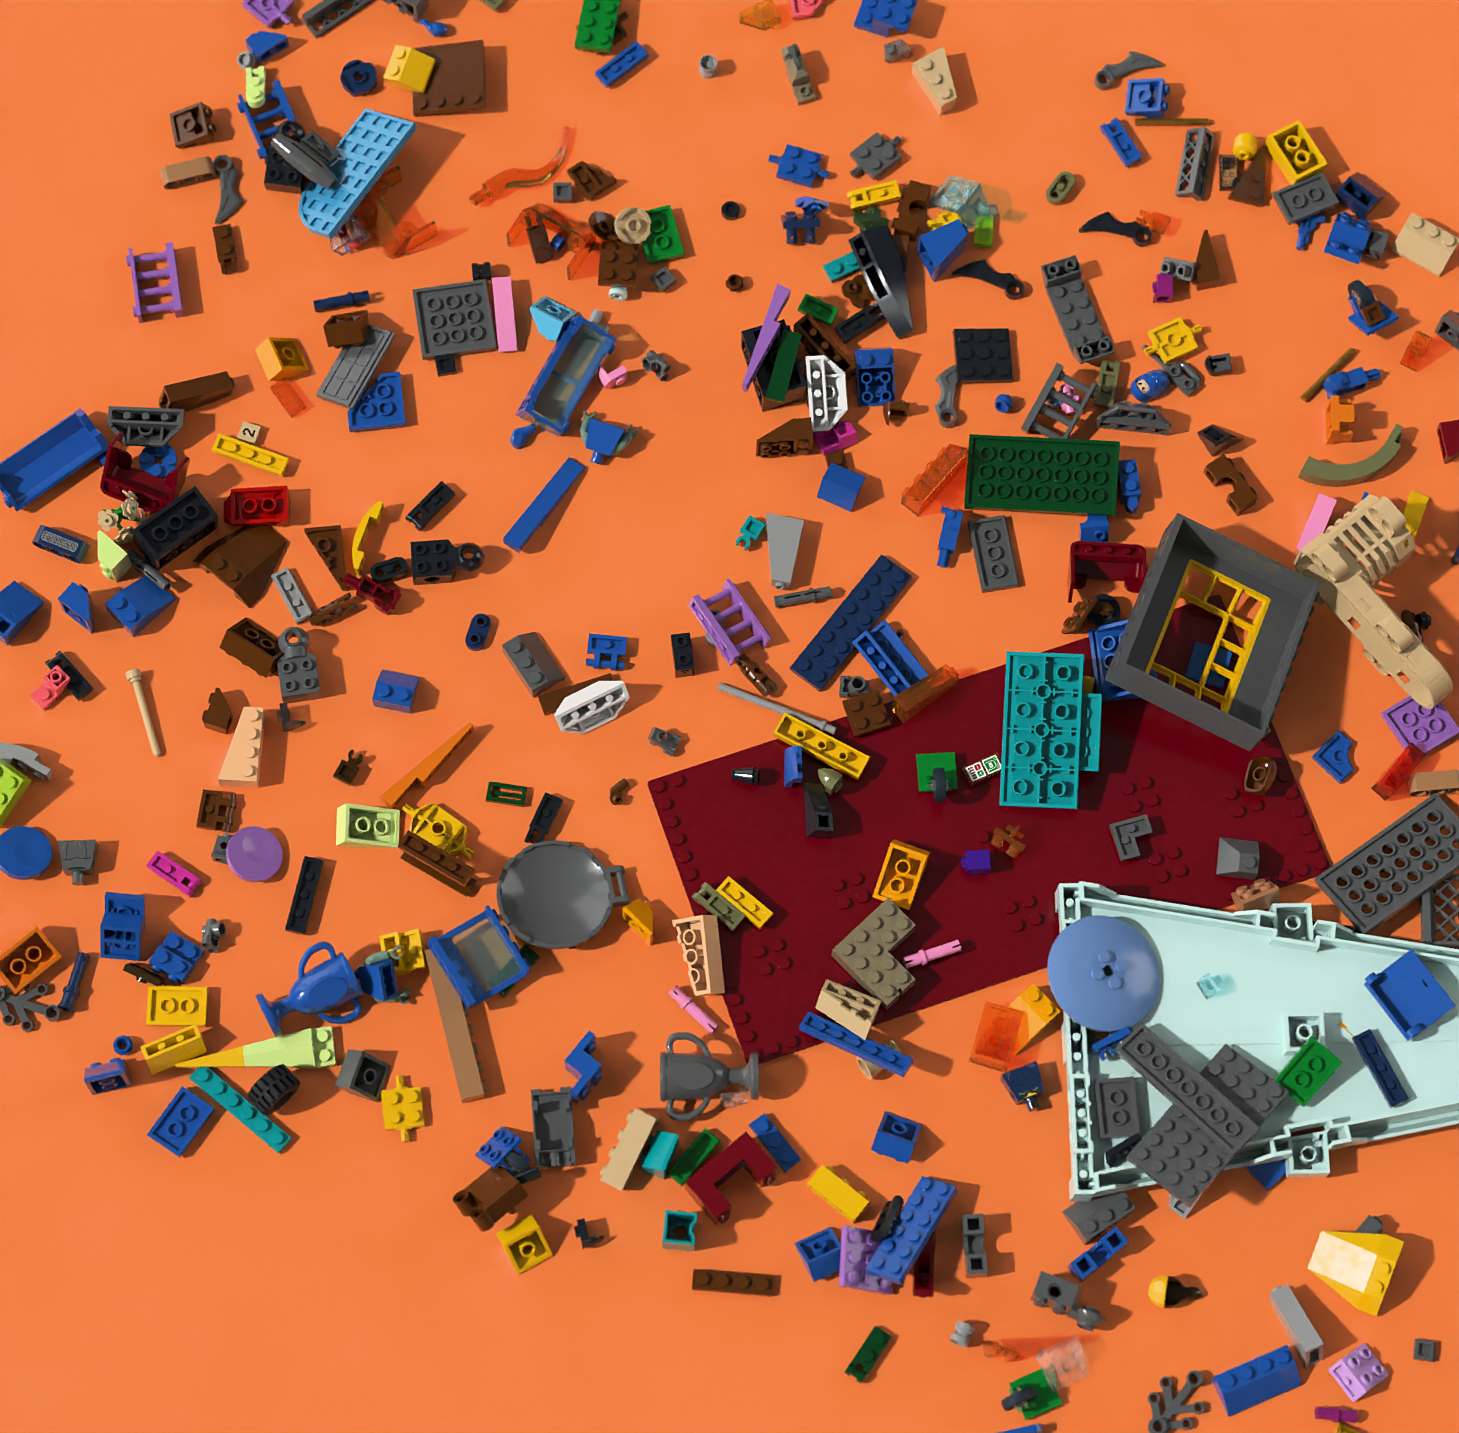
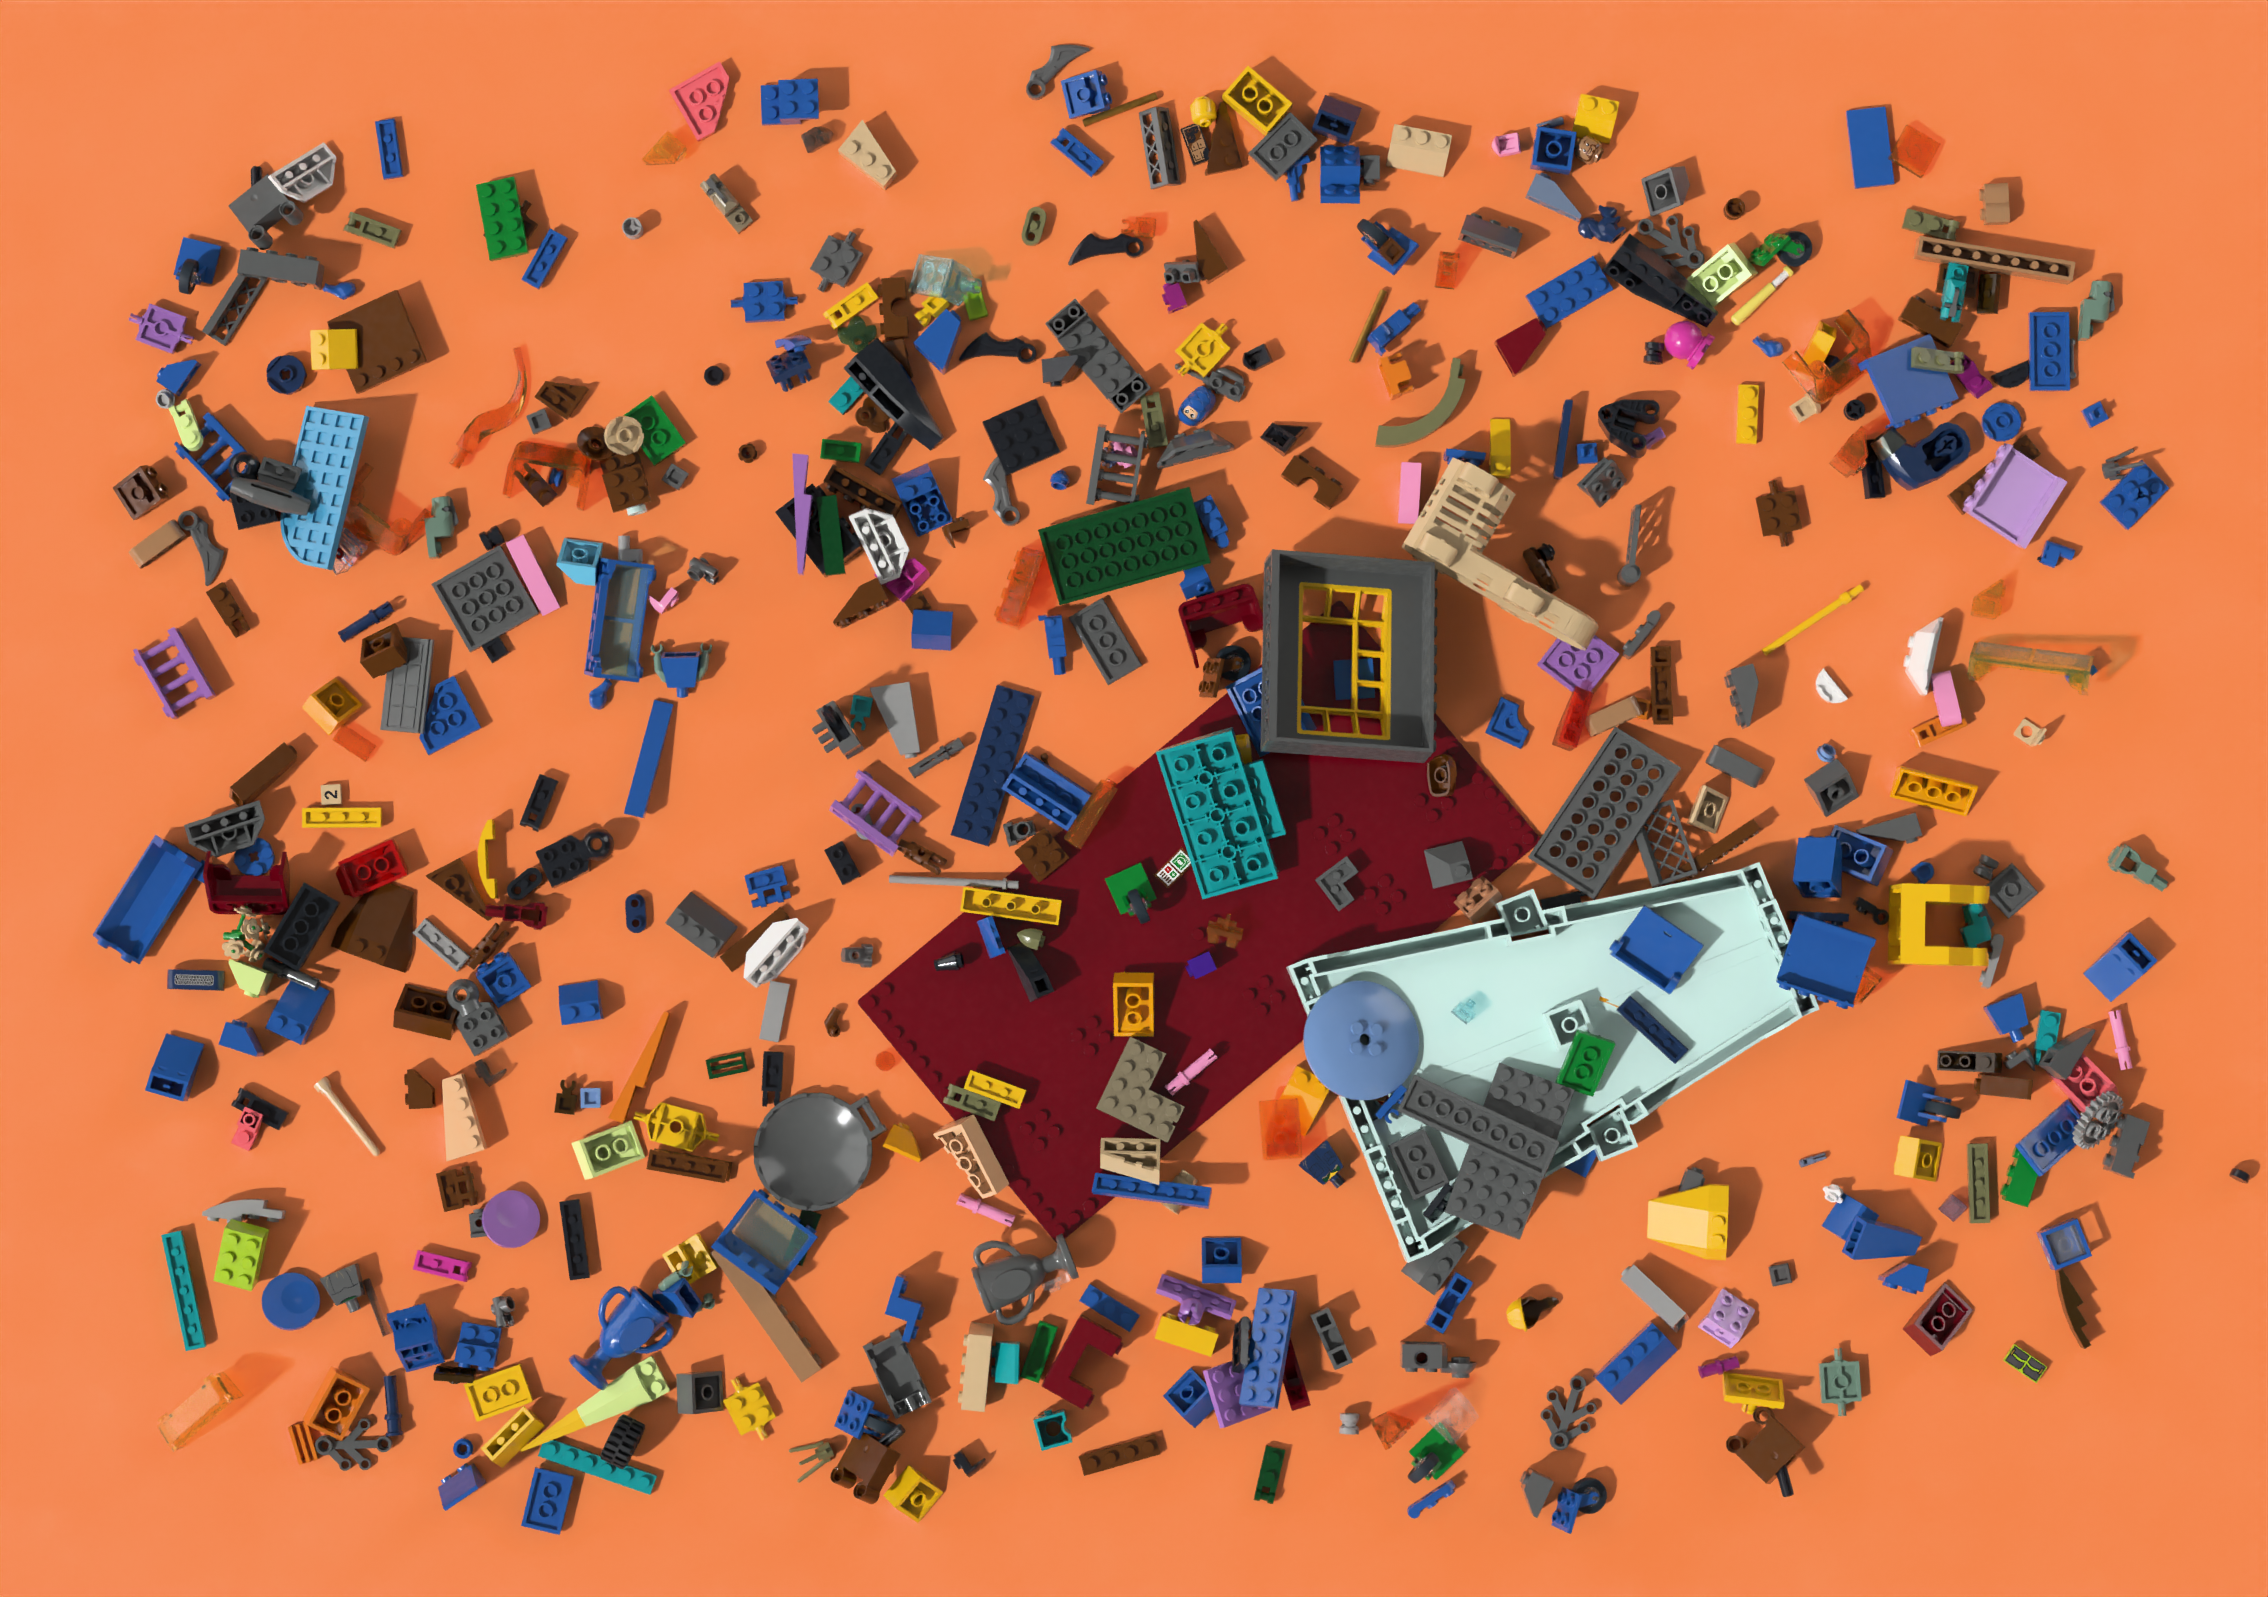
camera: 15 degrees left, 15 degrees up
(97, 889) = (376, 1307): none -> clear smoke bar
(335, 643) = (502, 978): none -> blue plate
(371, 776) = (590, 1097): none -> medium blue plate
(440, 244) = (440, 525): none -> sand green plate
(454, 1172) = (823, 1452): none -> olive plant
(568, 762) = (774, 1011): none -> light grey tile
(652, 843) = (885, 1061): none -> clear orange tile
(724, 534) = (838, 729): none -> dark grey piece
(857, 1163) = (1194, 1300): none -> medium lavender plate
(1041, 310) = (1060, 369): none -> black slope

